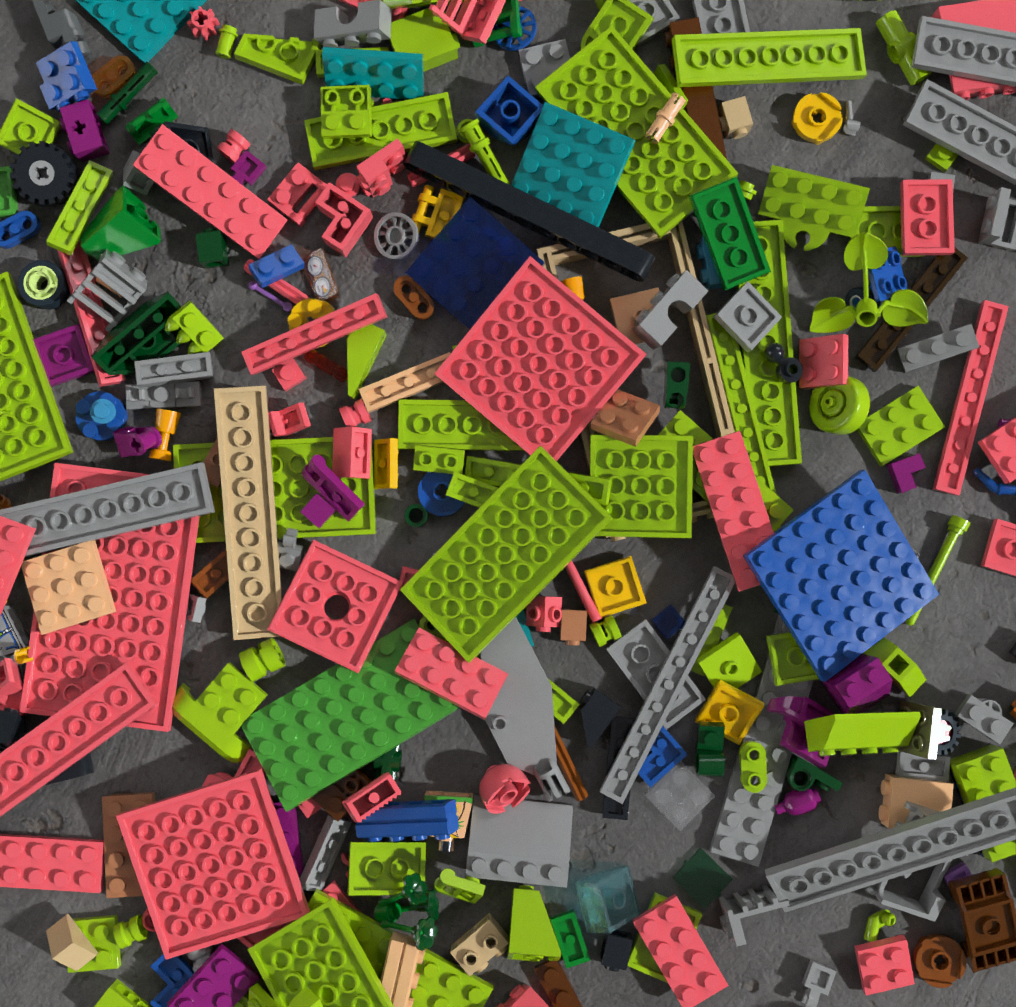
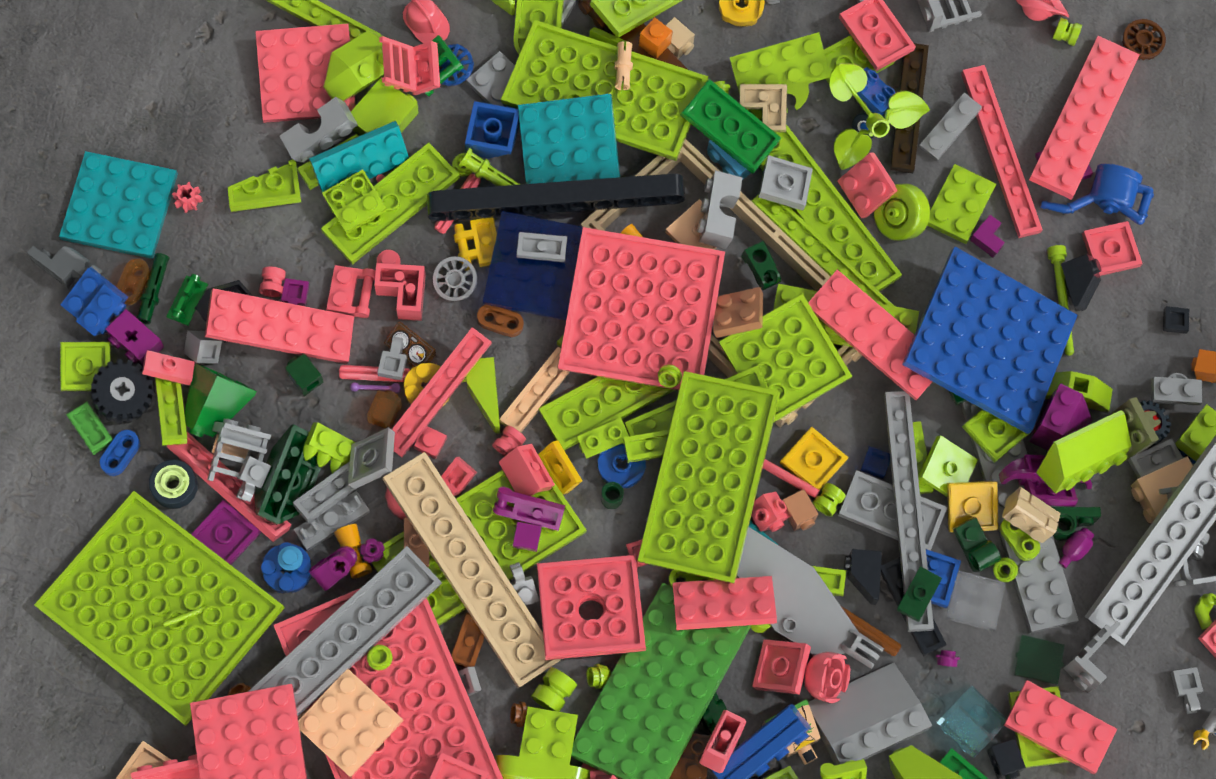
camera: 35 degrees left, 15 degrees down
(94, 175) = (168, 367): none -> coral plate
(109, 317) = (253, 475): none -> light grey plate
(124, 546) = (379, 657): none -> lime plate
(183, 445) = (371, 557): none -> magenta plate
(220, 362) = (371, 458): none -> light grey plate
(221, 660) = (518, 714): none -> dark orange plate
(226, 41) = (215, 203): lime pin -> none
(264, 321) = (384, 409): none -> clear orange brick
(276, 266) = (367, 358): blue plate -> none
(293, 284) = (393, 362): none -> light grey plate
(309, 668) = (597, 676): none -> lime plate
(326, 365) = (459, 416): clear red axle -> none
(376, 170) = (411, 233): coral plate -> none
(469, 755) = (781, 666): none -> coral plate
(483, 252) = (541, 247): none -> light grey plate
(526, 440) = (669, 376): none -> lime plate
(620, 832) = (947, 658): none -> magenta plate
(628, 767) = (919, 594): none -> dark green plate
(712, 107) = (655, 38): none -> orange brick
(717, 788) = (999, 573): none -> lime plate
(773, 757) = (1031, 515): none -> tan brick
(775, 353) = (825, 199): black plate -> none
(784, 230) = (771, 99): none -> tan plate
(965, 563) = (1082, 279): none -> black slope

